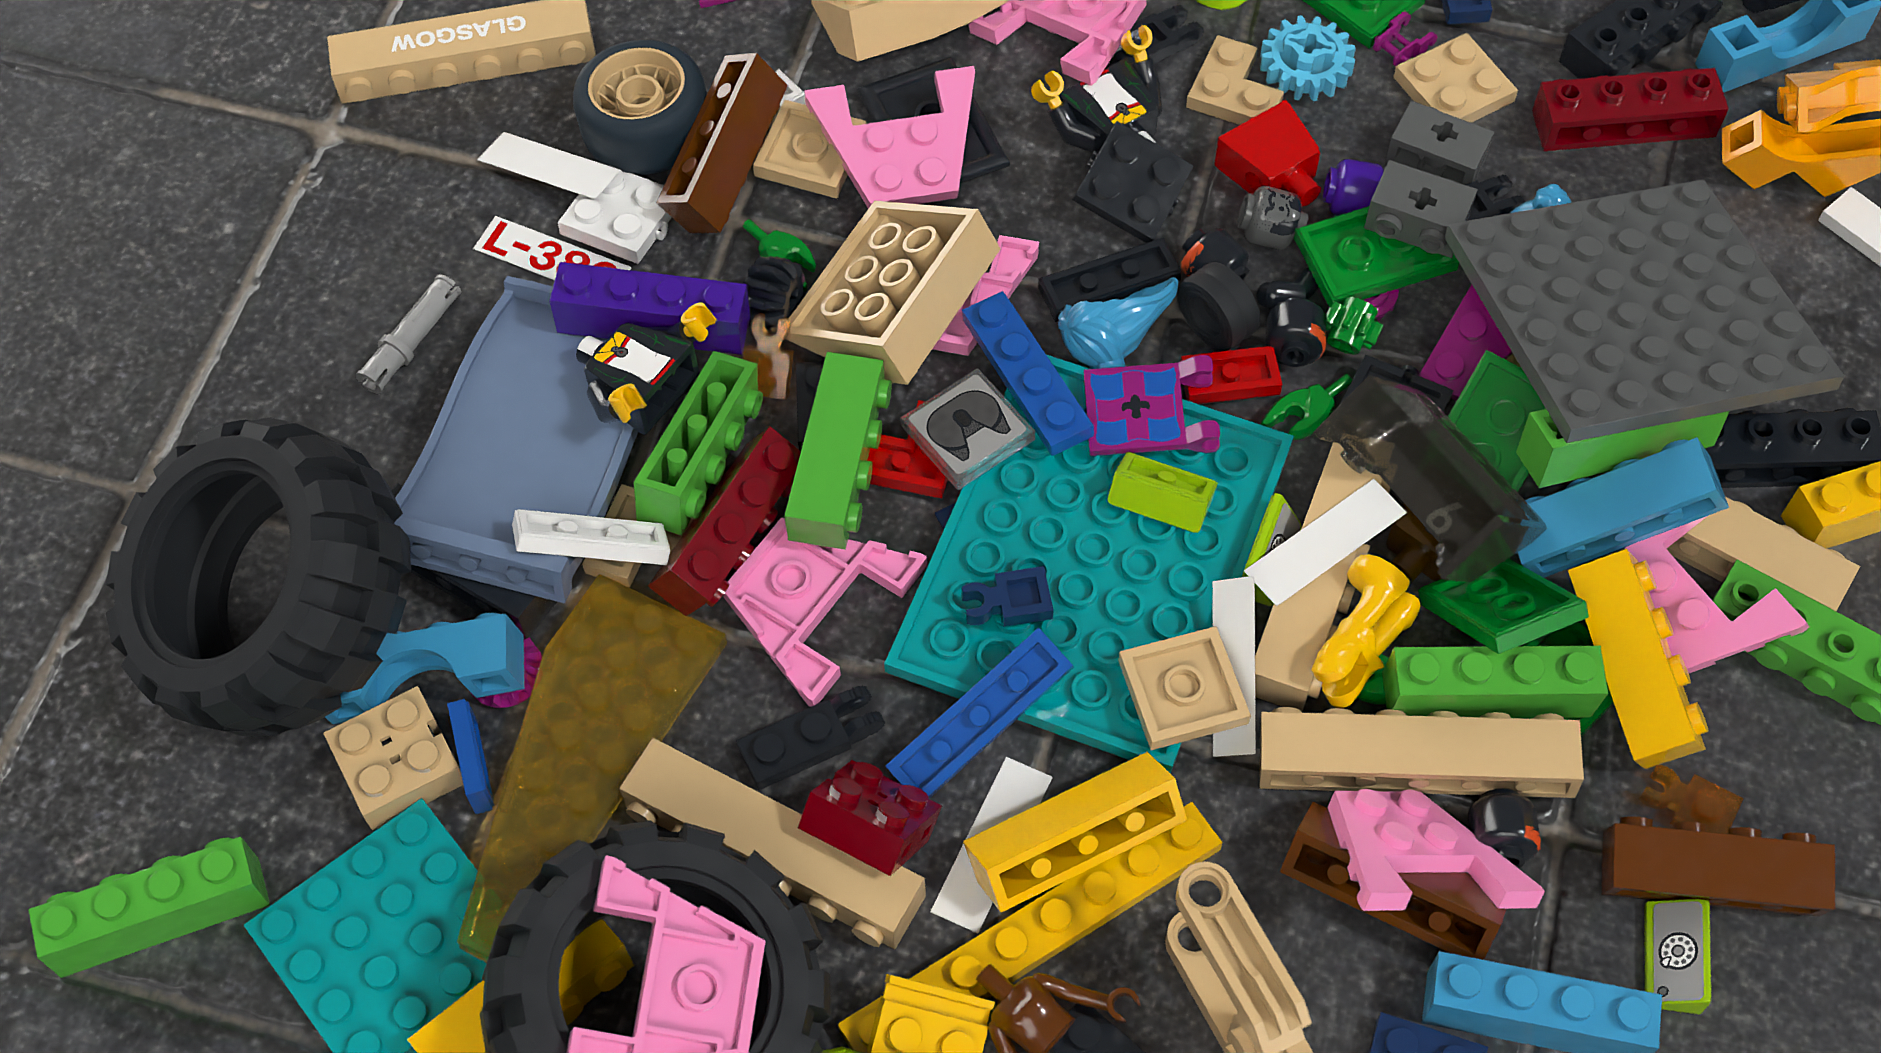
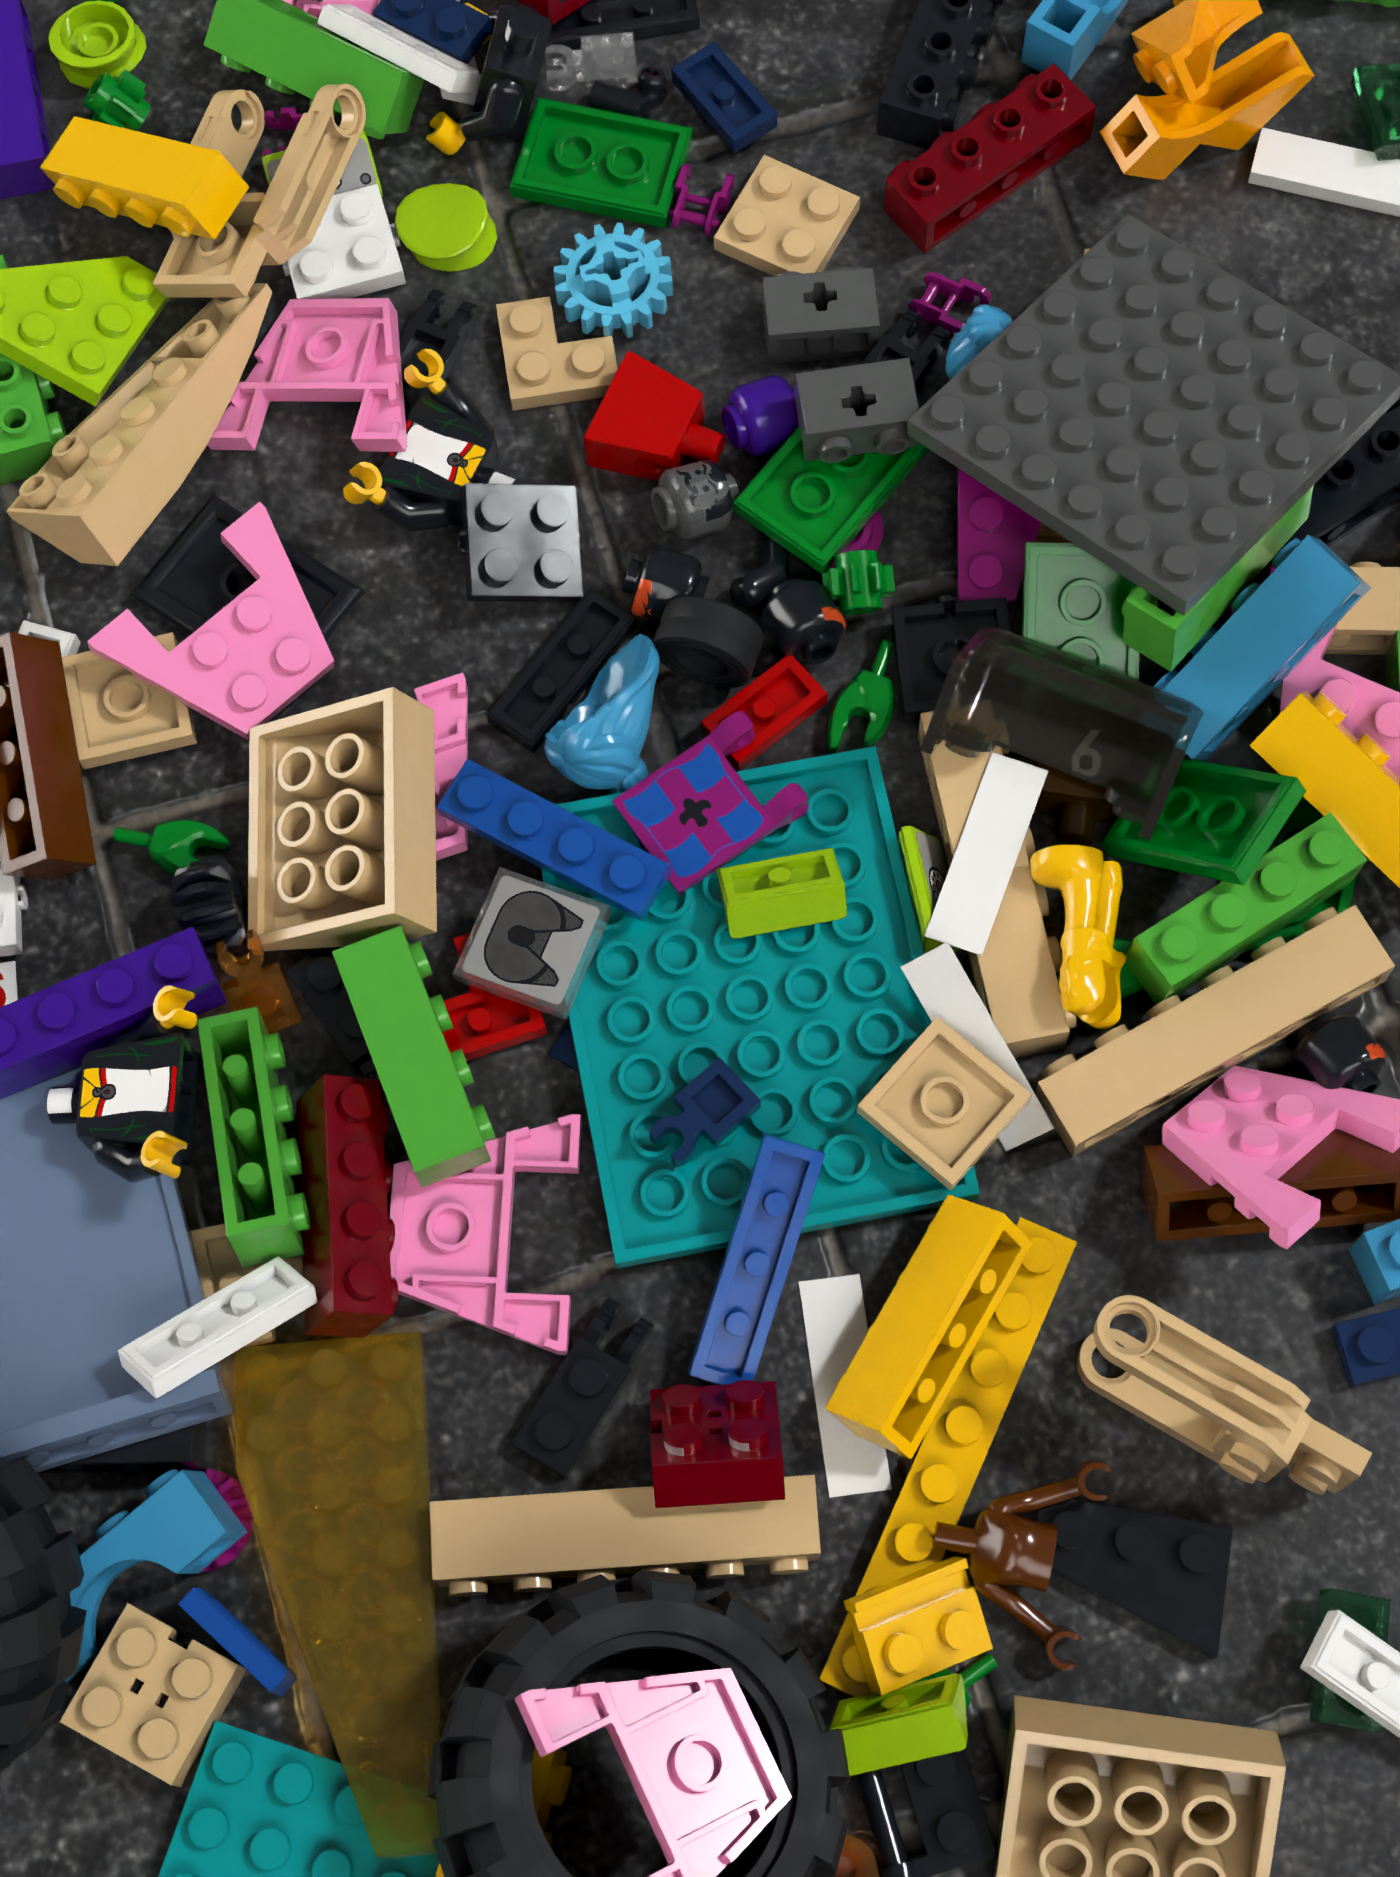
camera: 30 degrees left, 10 degrees up
(1542, 176) = (954, 291): none -> magenta piece

